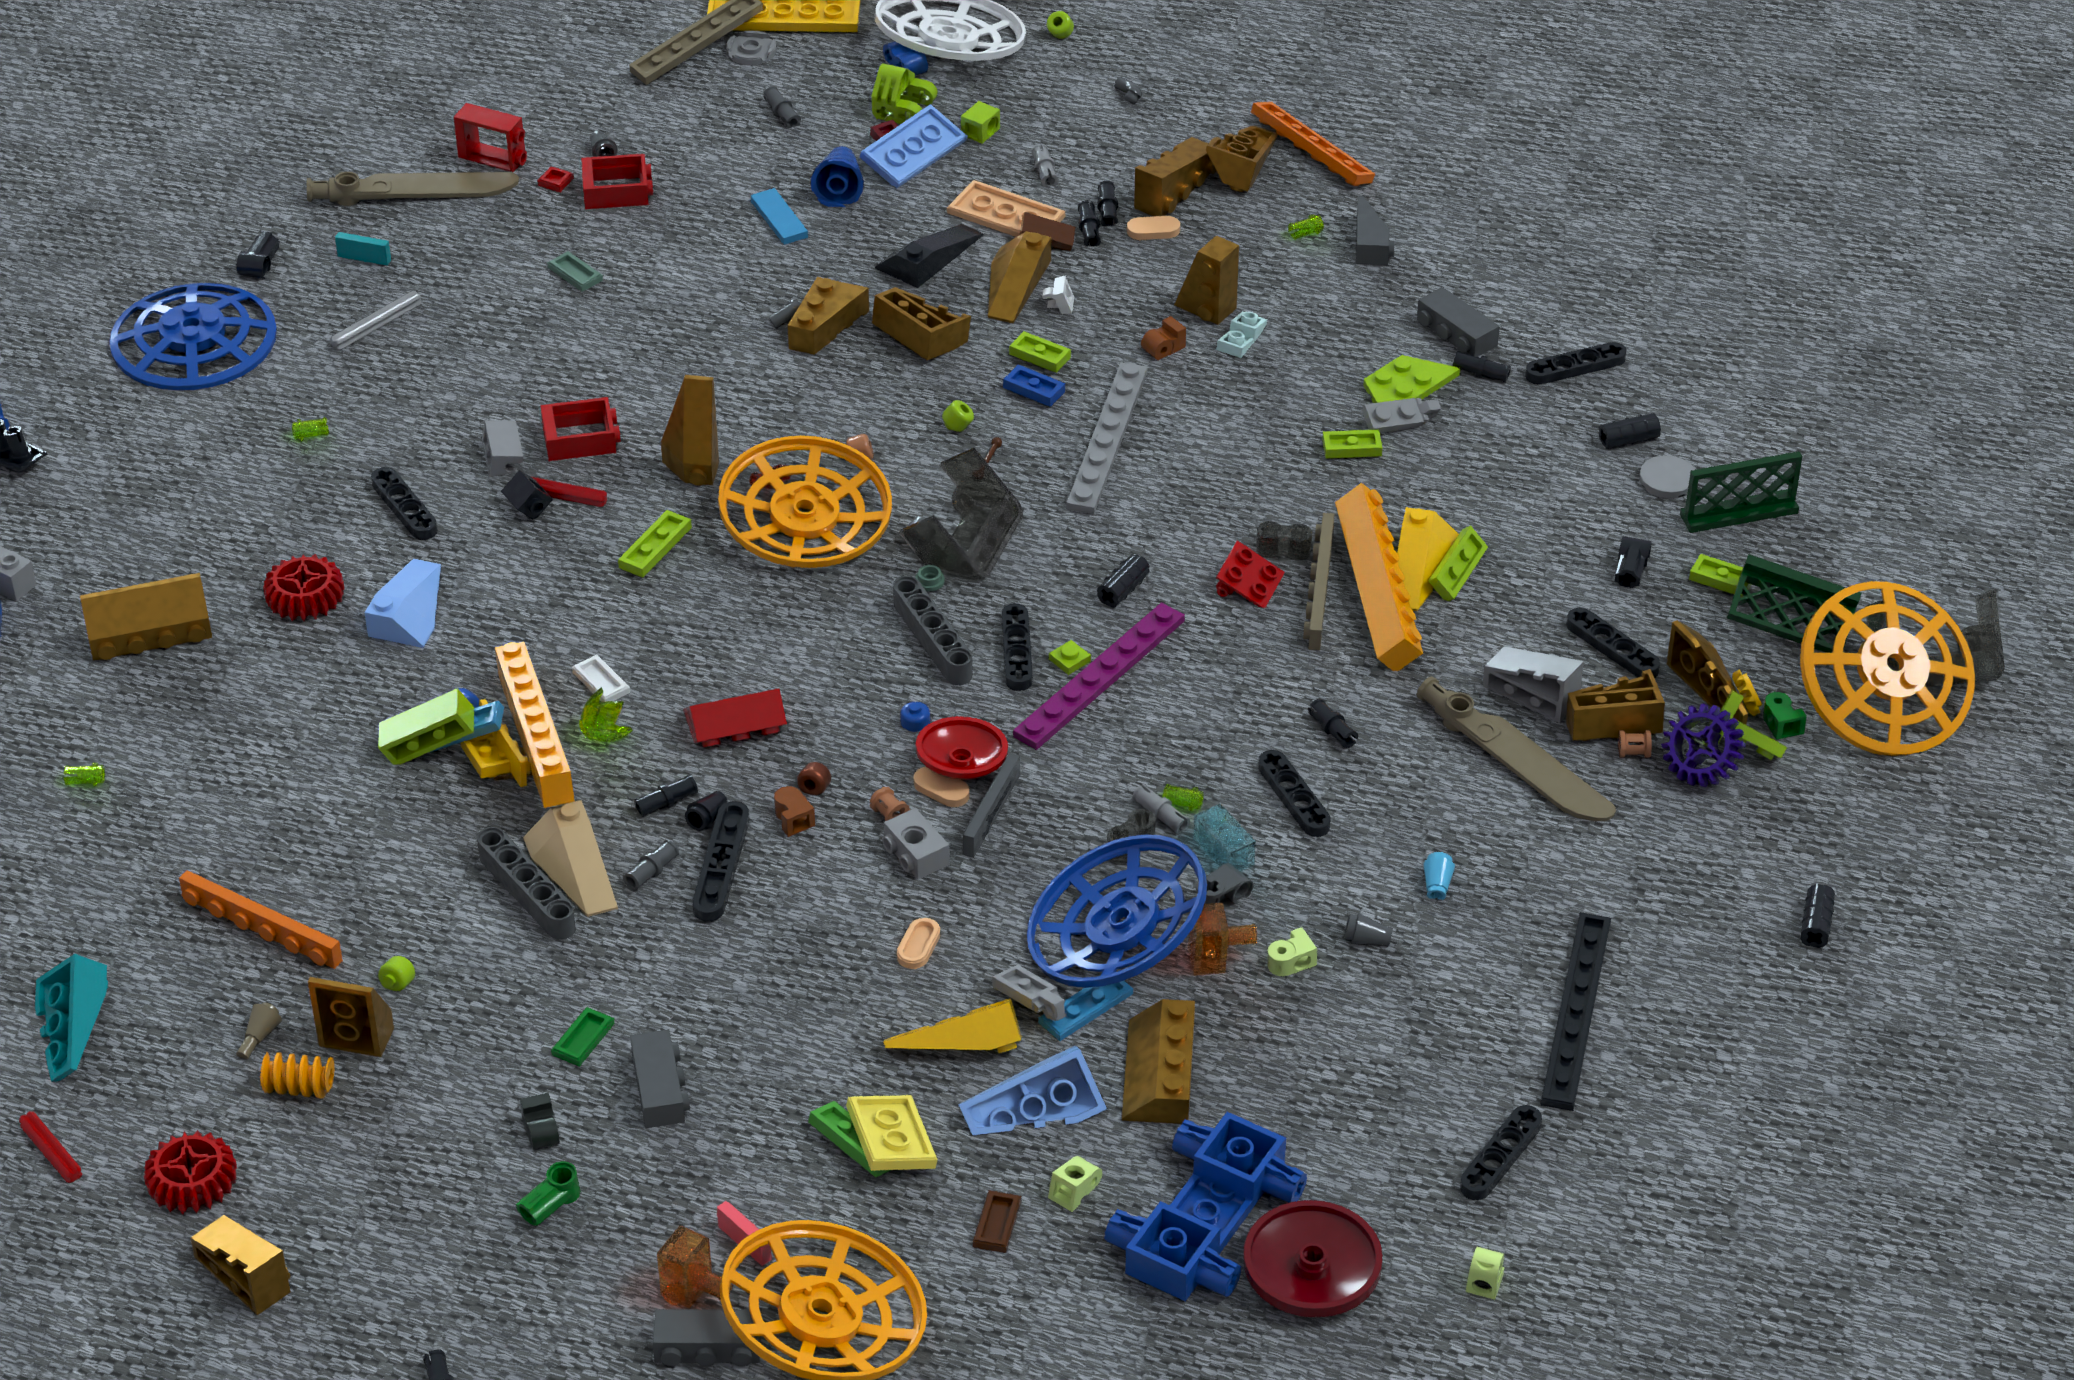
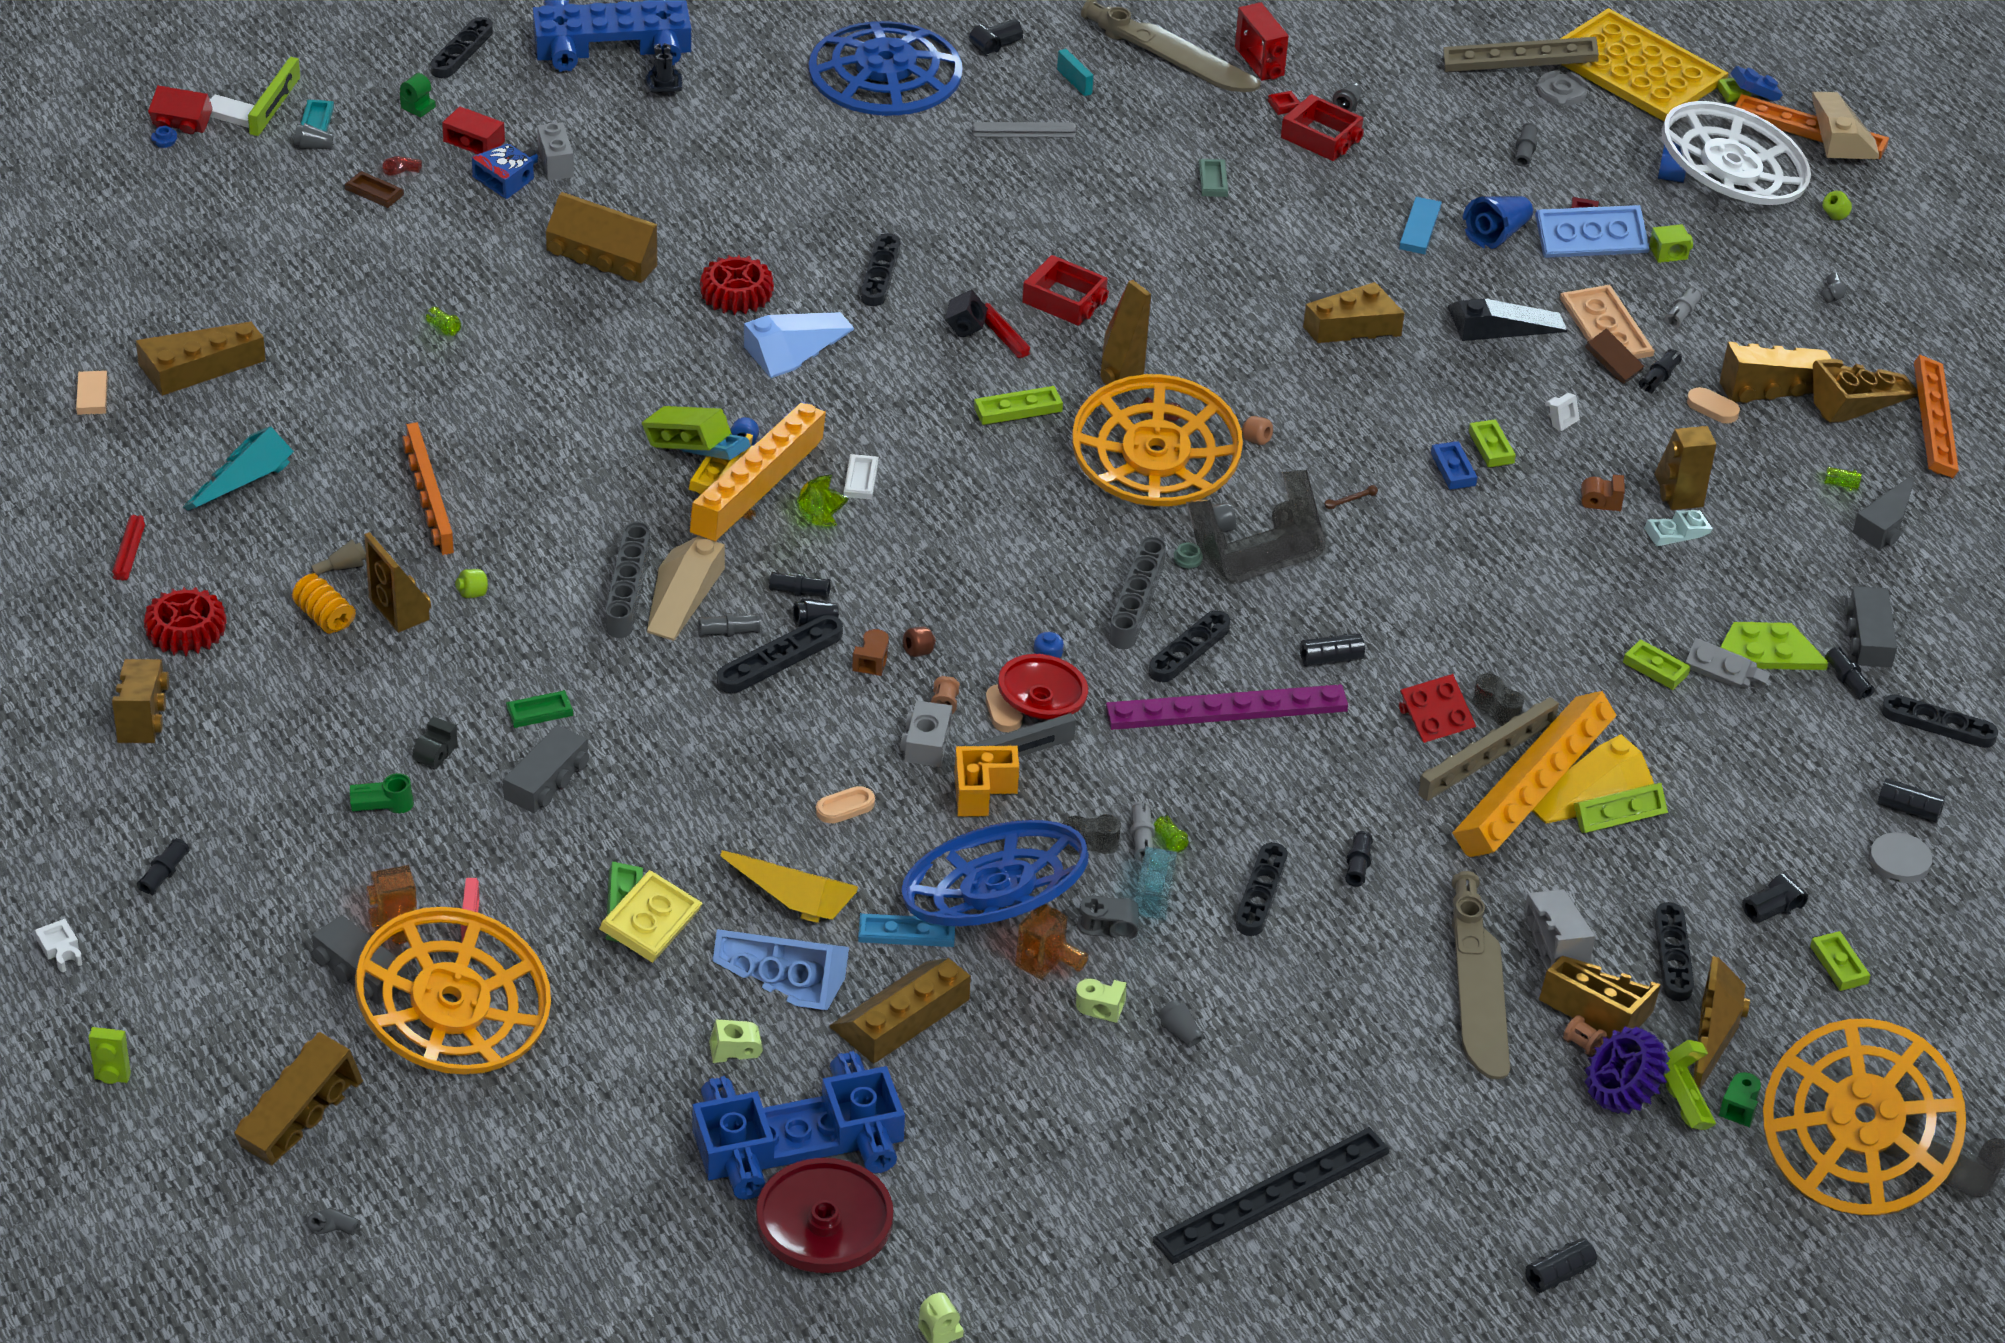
camera: 40 degrees right, 0 degrees up
(309, 428) = (880, 178): clear neon green pin -> none
(501, 446) = (994, 269): light grey hinge -> none
(736, 717) = (914, 561): red slope -> none
(899, 93) = (1631, 170): lime piece -> none
(918, 325) = (1416, 366): pearl gold wedge -> none
(957, 416) = (1361, 451): lime piece -> none
(997, 1221) = (651, 1030): reddish brown tile -> none
(1003, 848) = (981, 773): none -> light orange brick
(1016, 273) = (1550, 377): pearl gold wedge -> none
(1030, 991) = (872, 889): light grey hinge -> none
(1069, 657) = (1220, 679): lime plate -> none
(1107, 203) = (1696, 364): black pin -> none
(1107, 438) = (1463, 539): light grey plate -> none
(1438, 874) = (1292, 1022): medium azure cone -> none
(1497, 1151) = (1071, 1246): black beam -> none
(1742, 507) = (1928, 919): dark green fence -> none
(1746, 689) = (1729, 1058): yellow gear -> none
(1798, 588) = (1873, 992): dark green fence -> none

